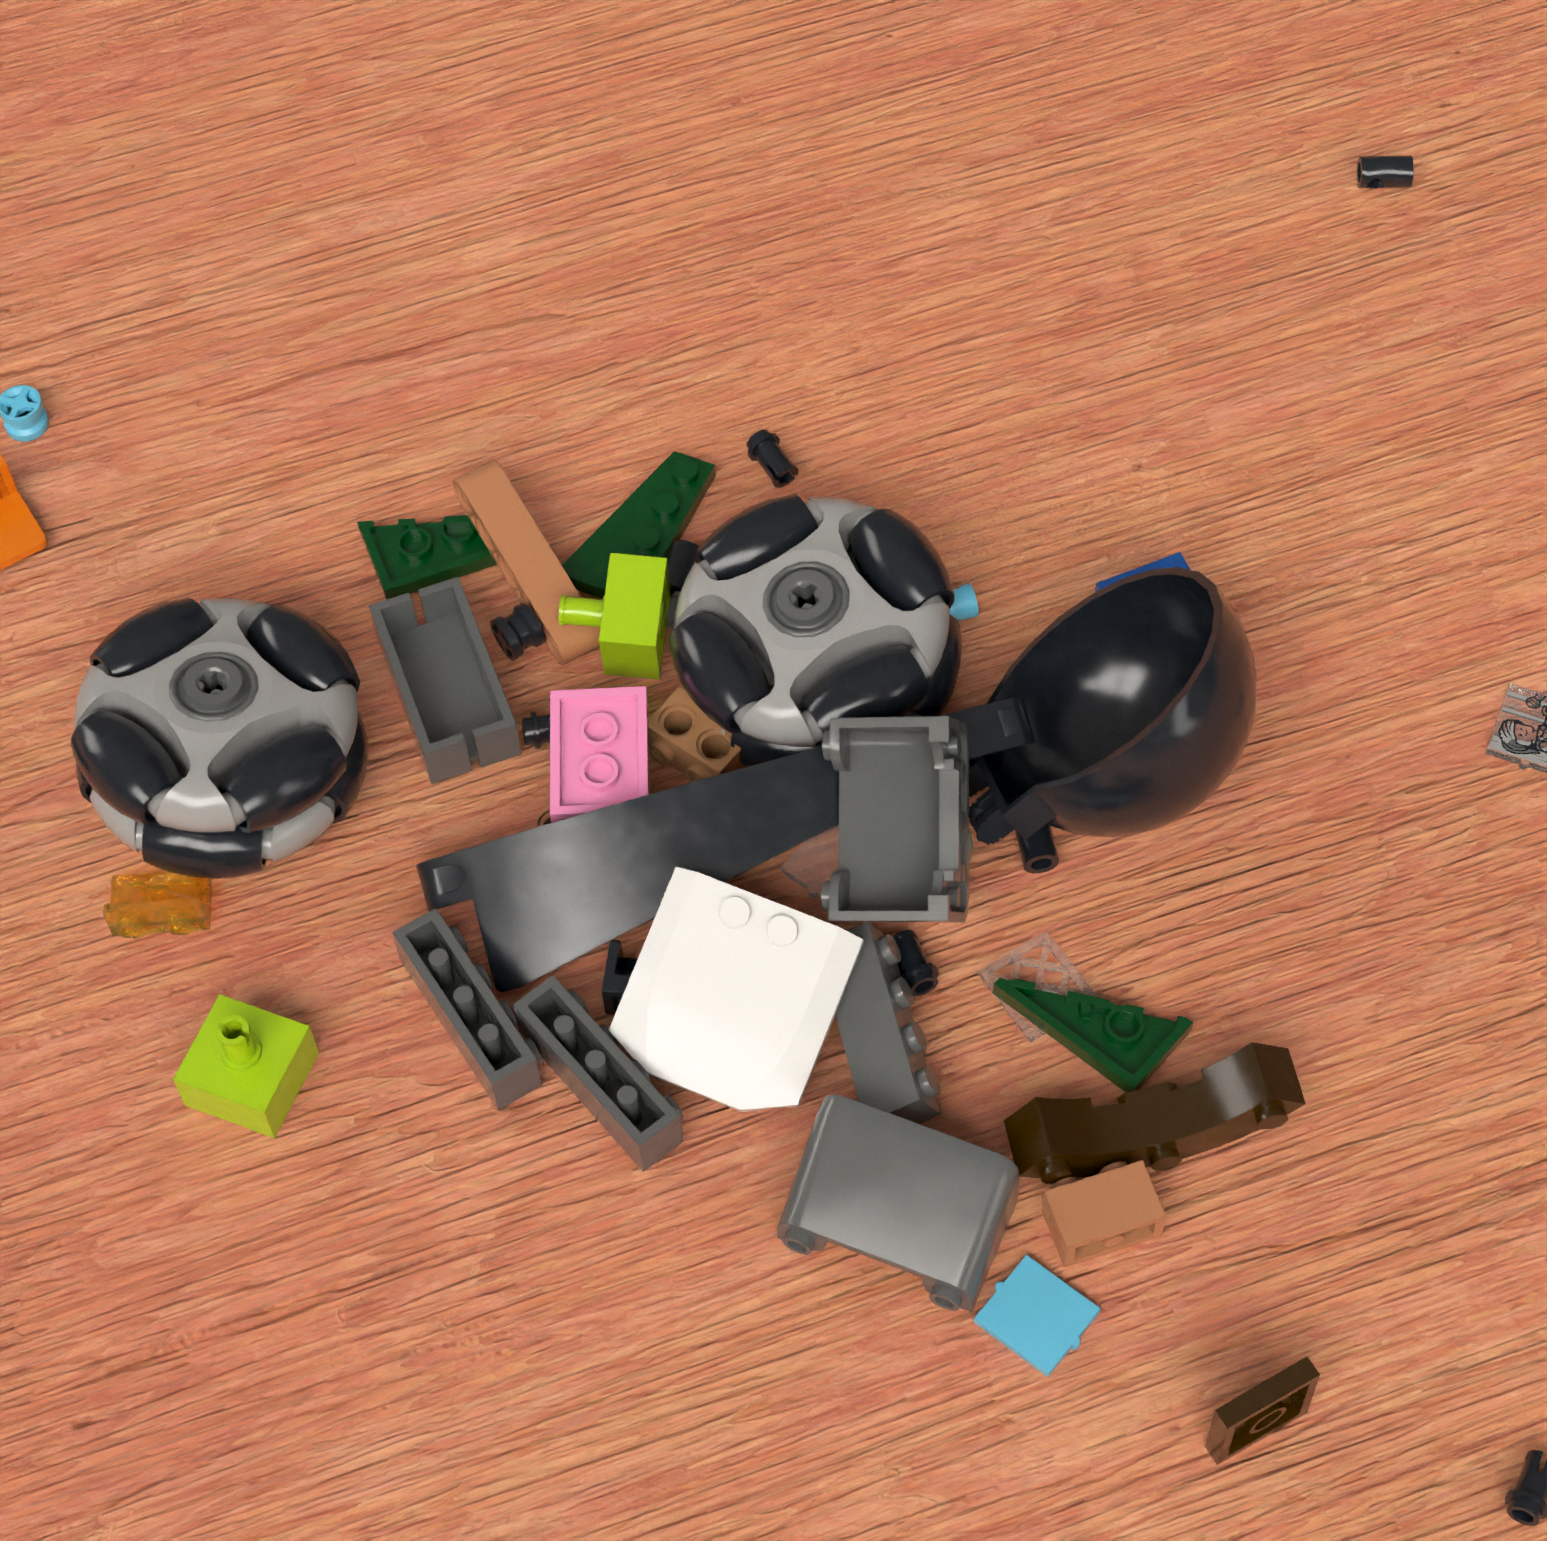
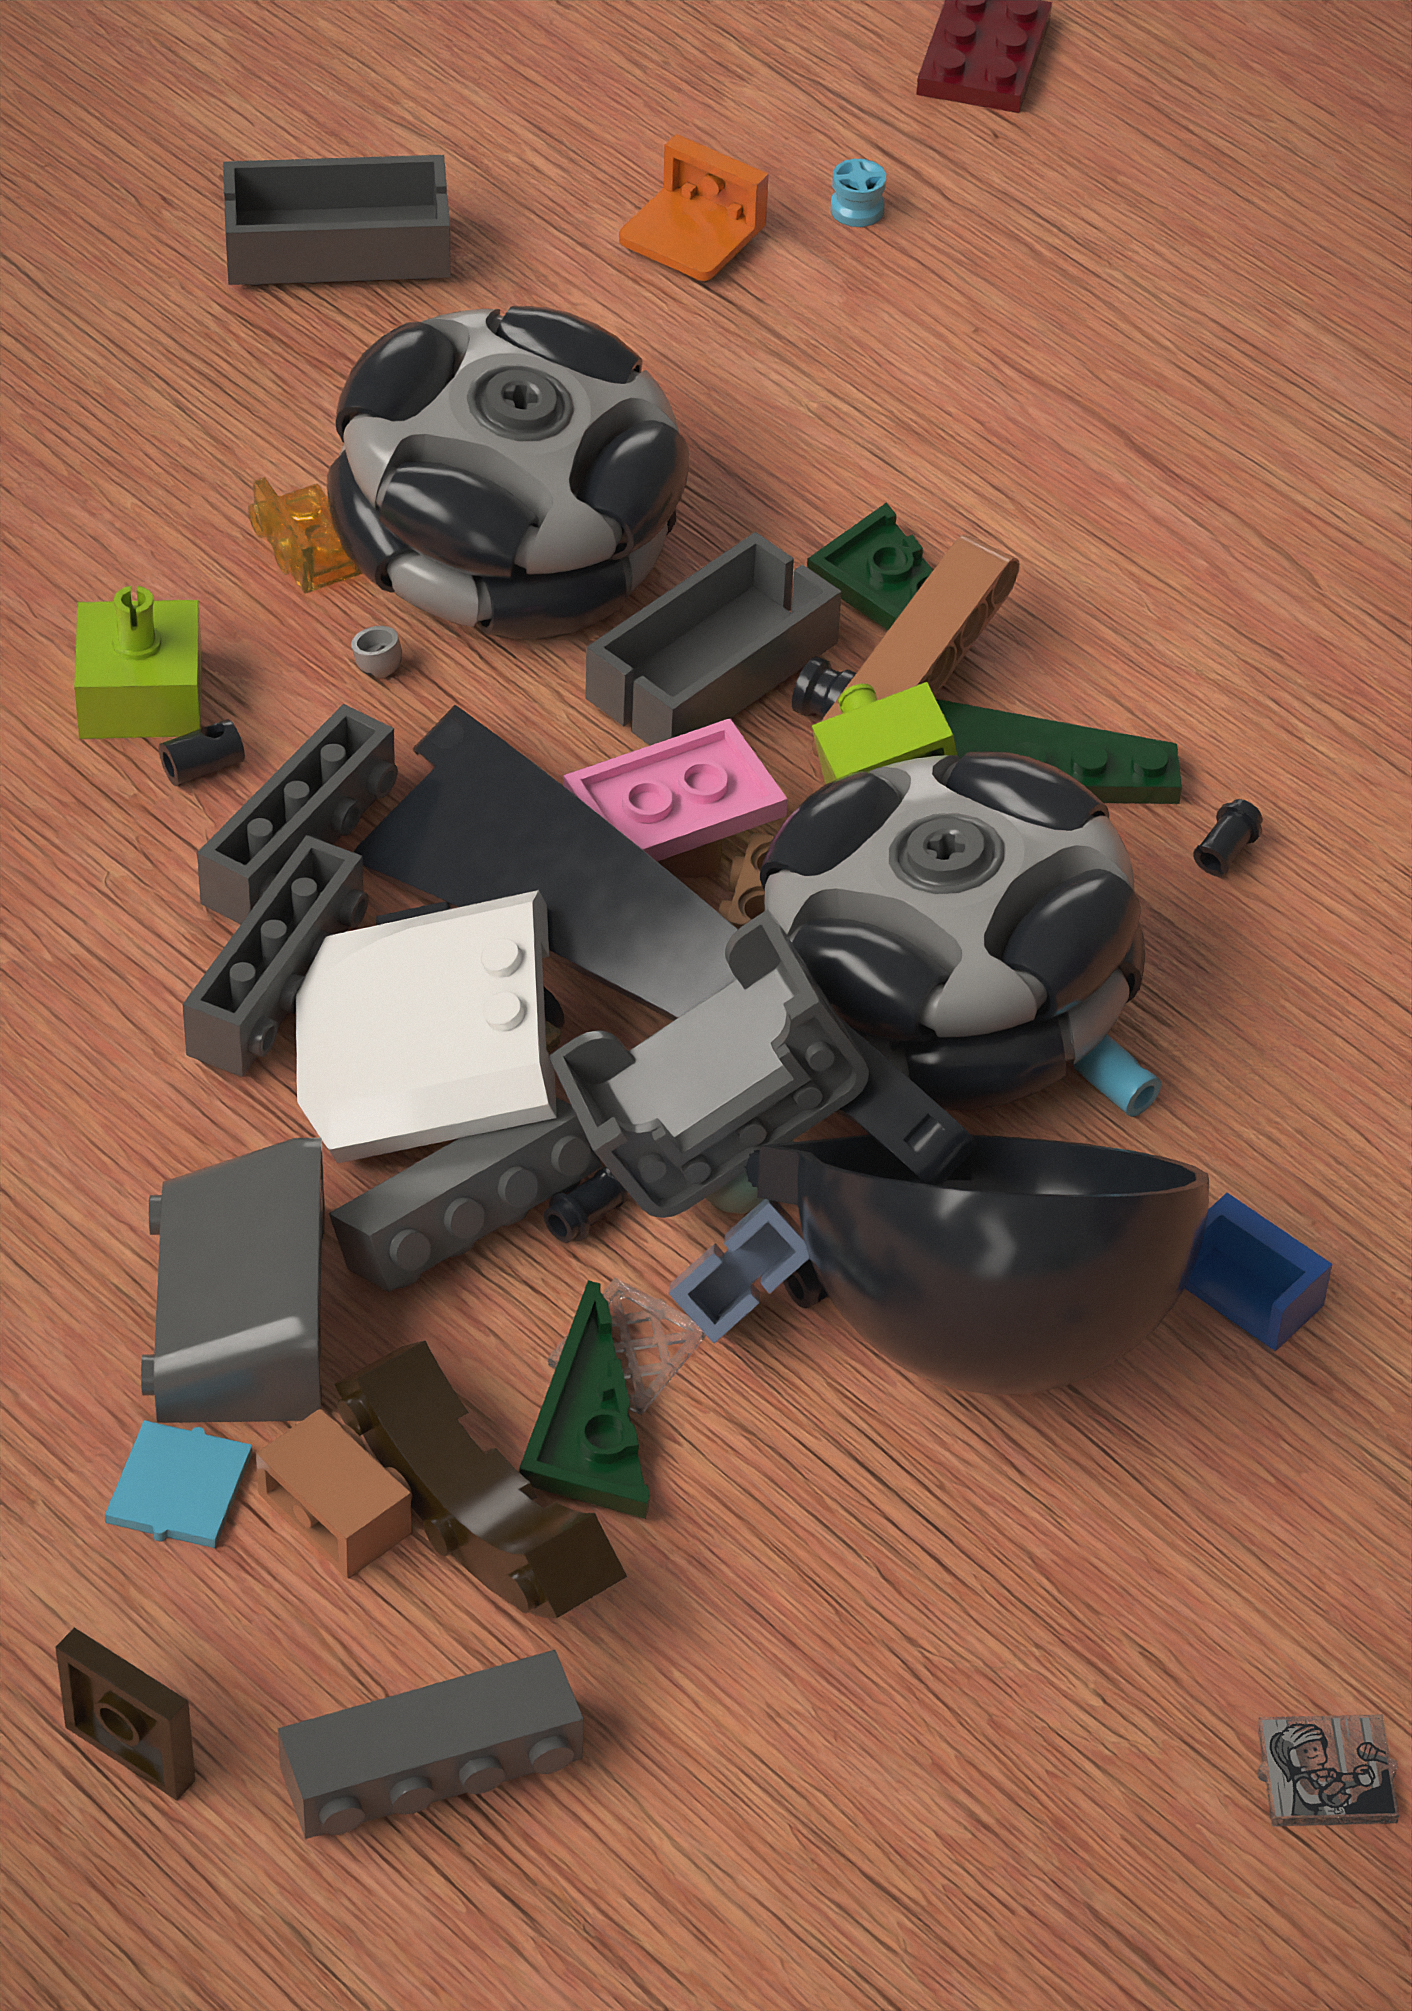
camera: 60 degrees right, 10 degrees down
(303, 903) = (377, 651): none -> light grey hinge
(350, 1055) = (201, 752): none -> black piece
(1034, 907) = (719, 1285): none -> sand blue piece
(1349, 1228) = (430, 1744): none -> dark grey brick

